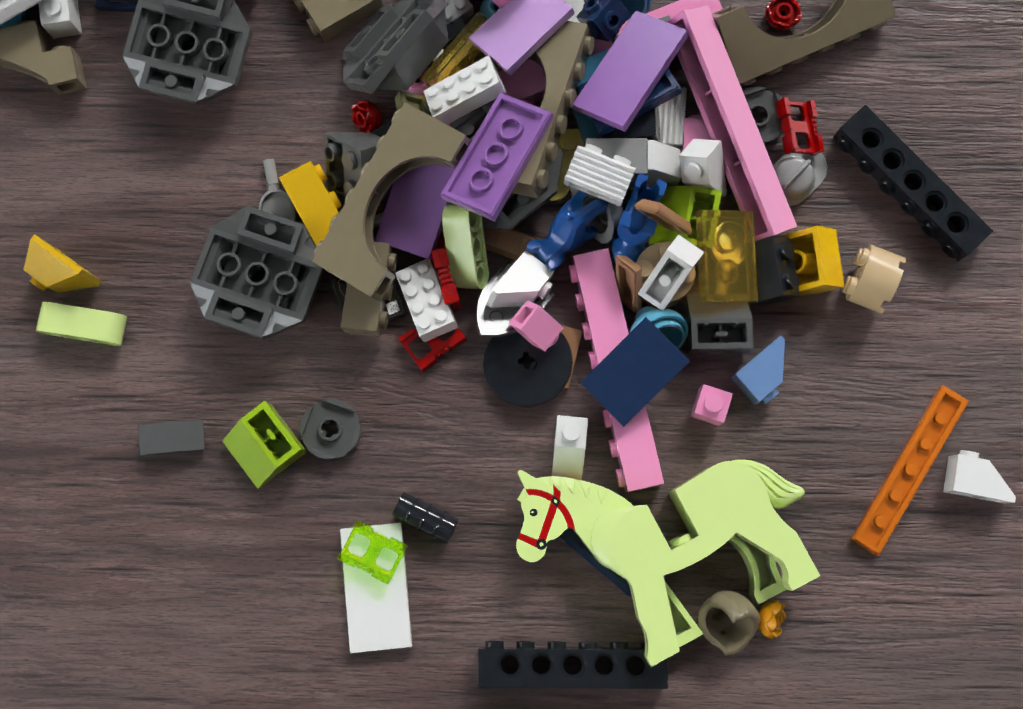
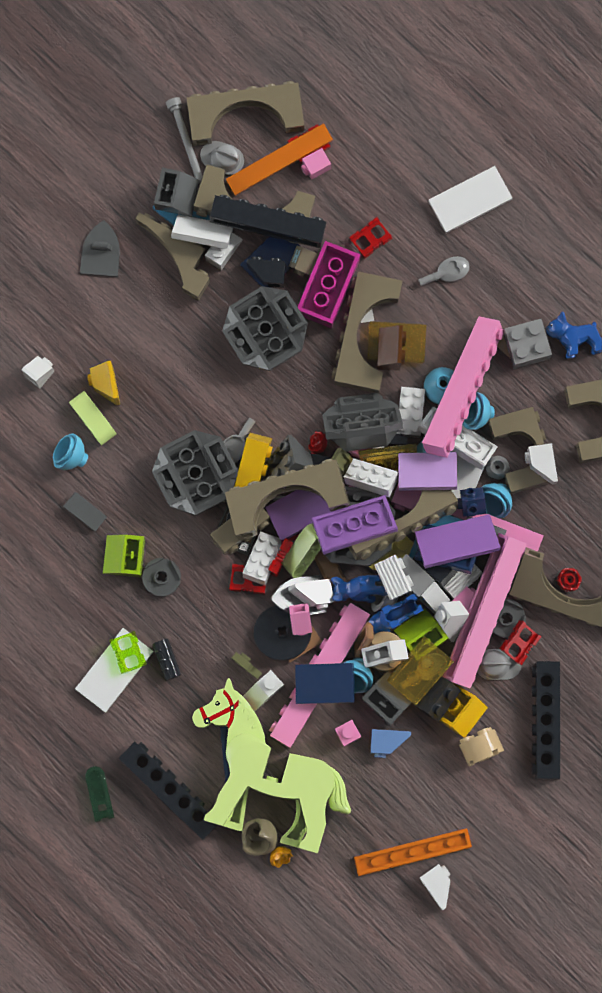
camera: 40 degrees right, 0 degrees up
(90, 386) = (69, 453): none -> medium azure piece
(515, 436) = (243, 661): none -> olive plate
(663, 216) = (406, 624): medium nougat tile -> none

